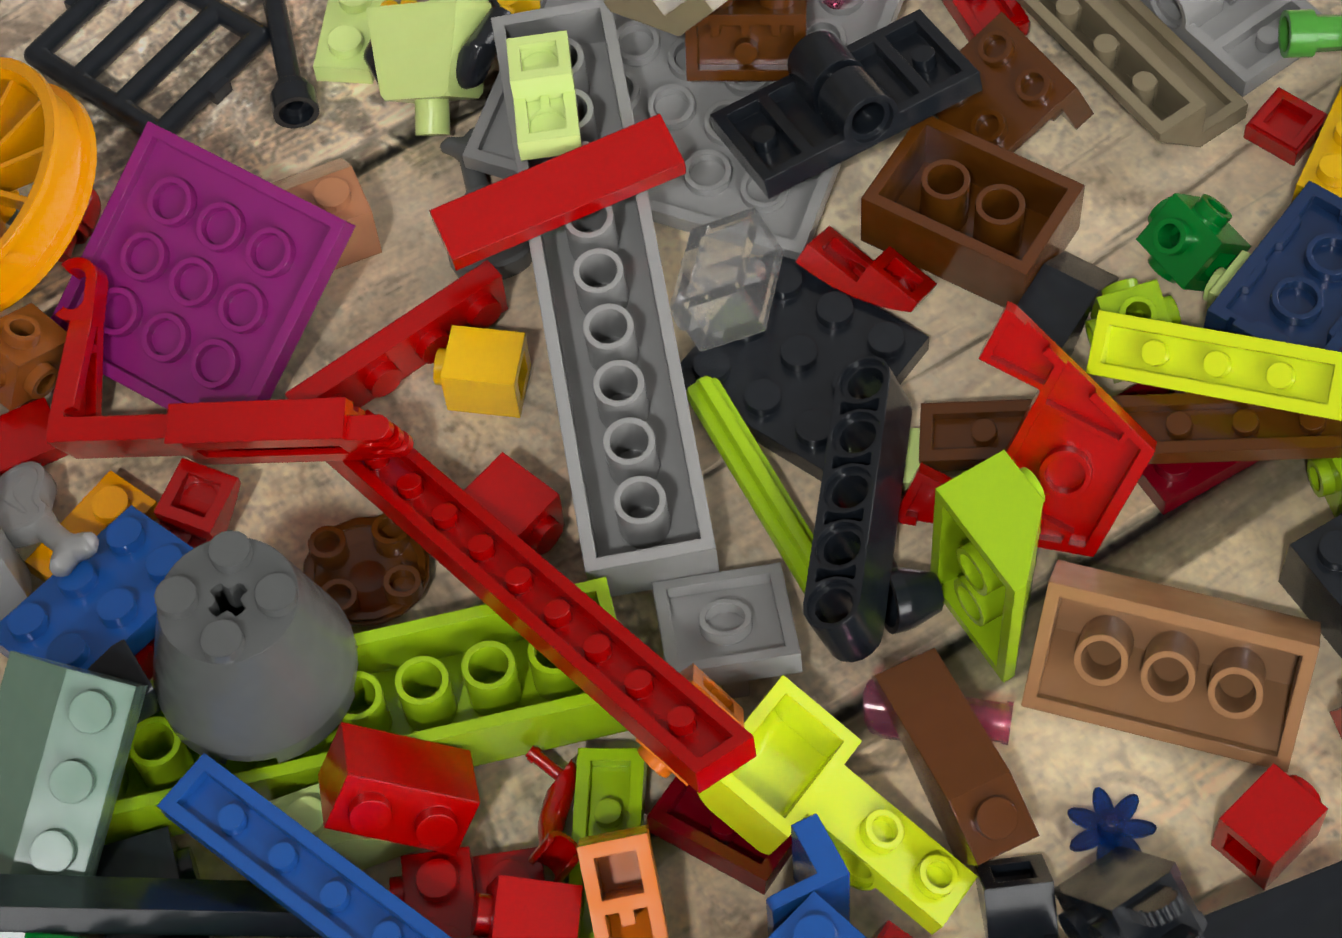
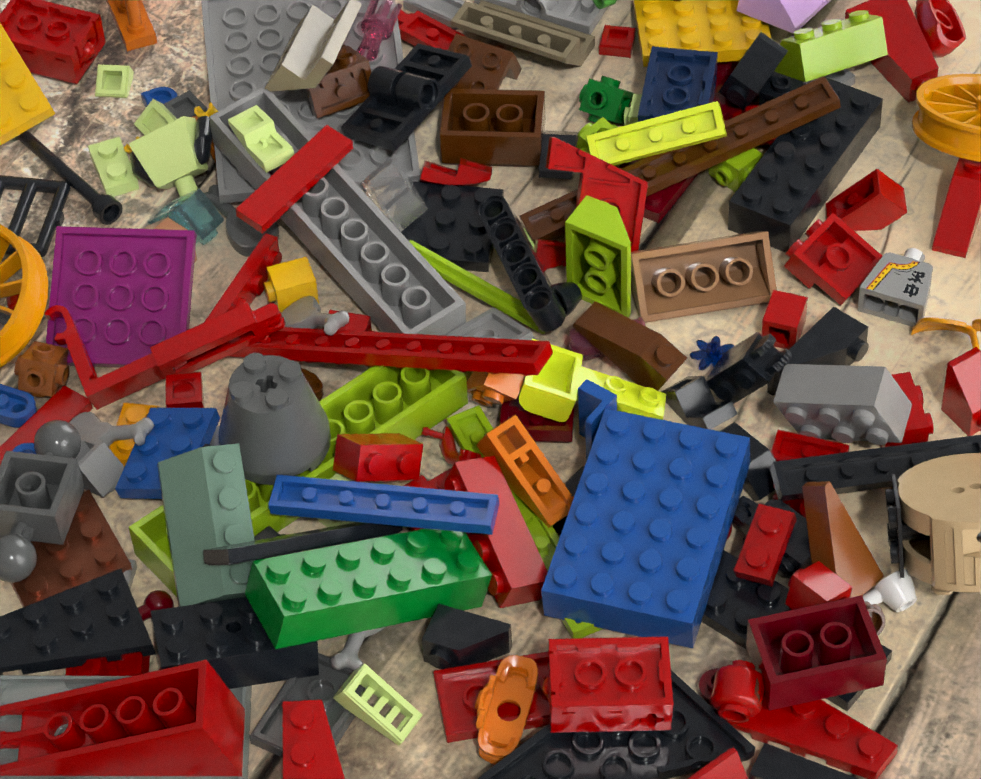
camera: 30 degrees left, 10 degrees down
(398, 178) = (193, 213): none -> clear light blue slope
(460, 446) = (307, 314): none -> light grey piece

